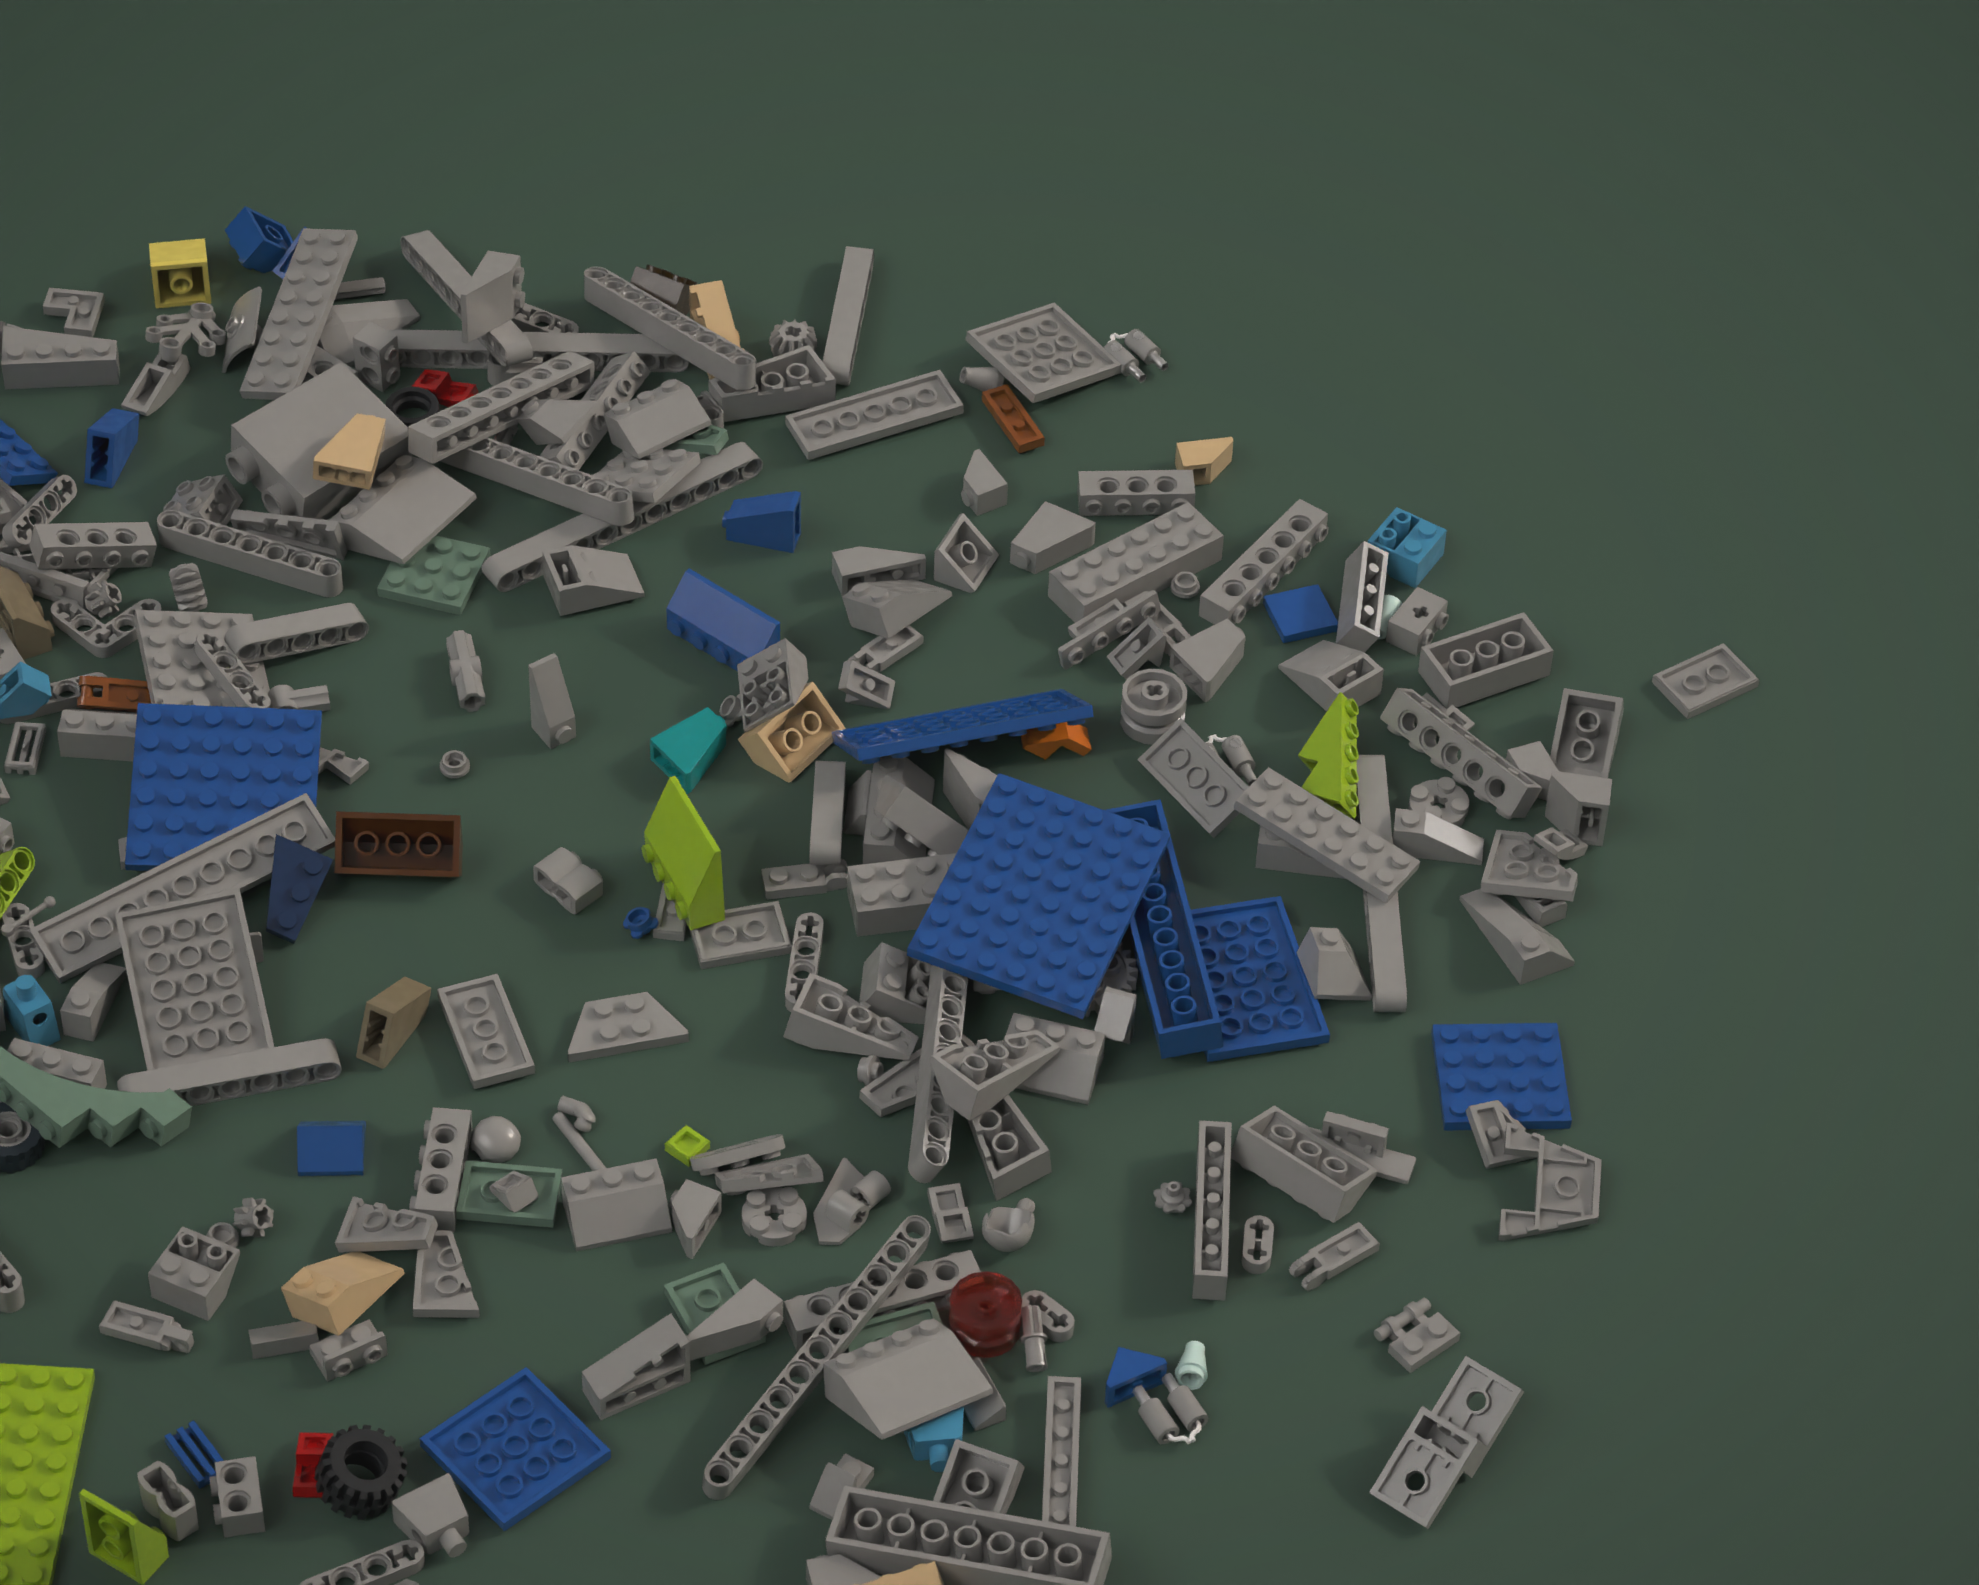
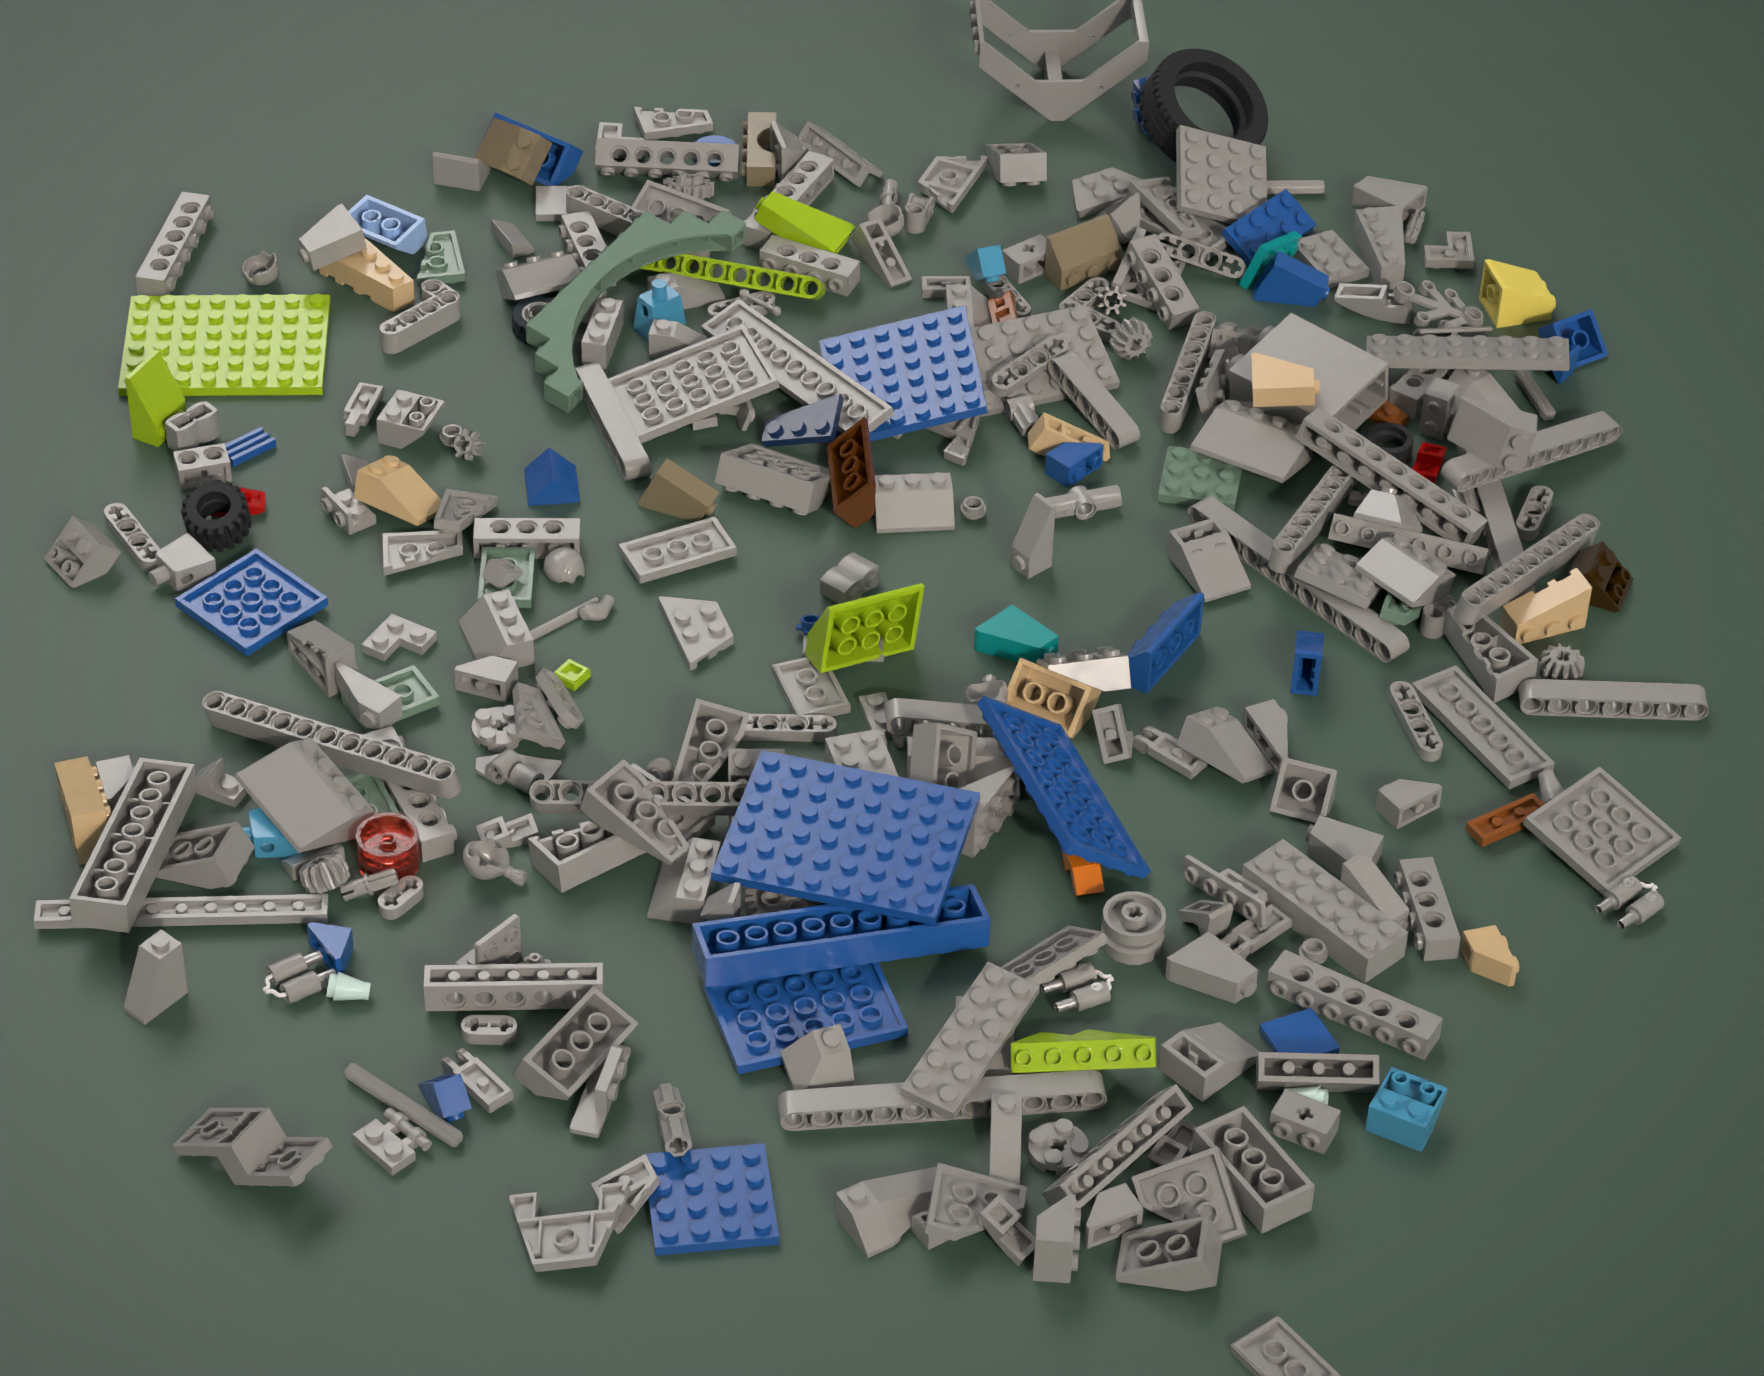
camera: 85 degrees right, 5 degrees down
(55, 412) = (1333, 257): none -> light grey plate
(61, 450) = (1286, 244): none -> teal wing
(357, 671) = (1051, 432): none -> tan slope
(371, 927) = (774, 477): none -> light grey slope
(395, 669) = (1073, 461): none -> blue slope
(447, 792) = (914, 503): none -> light grey slope
(592, 1309) = (398, 632): none -> light grey plate
(786, 780) = (989, 687): none -> light grey hair
(856, 466) = (1420, 720): none -> light grey beam
(1023, 1363) = (324, 873): none -> light grey gear
(1120, 517) = (1368, 882): none -> light grey slope
(1156, 1229) = (498, 946): none -> light grey bracket
(1188, 1529) = (156, 977): none -> light grey slope
(1359, 1280) = (446, 1096): none -> slope
(1365, 1322) = (403, 1104): none -> light grey axle
(1409, 1088) = (672, 1120): none -> light grey piece
(1517, 705) = (1191, 1190): none -> light grey plate

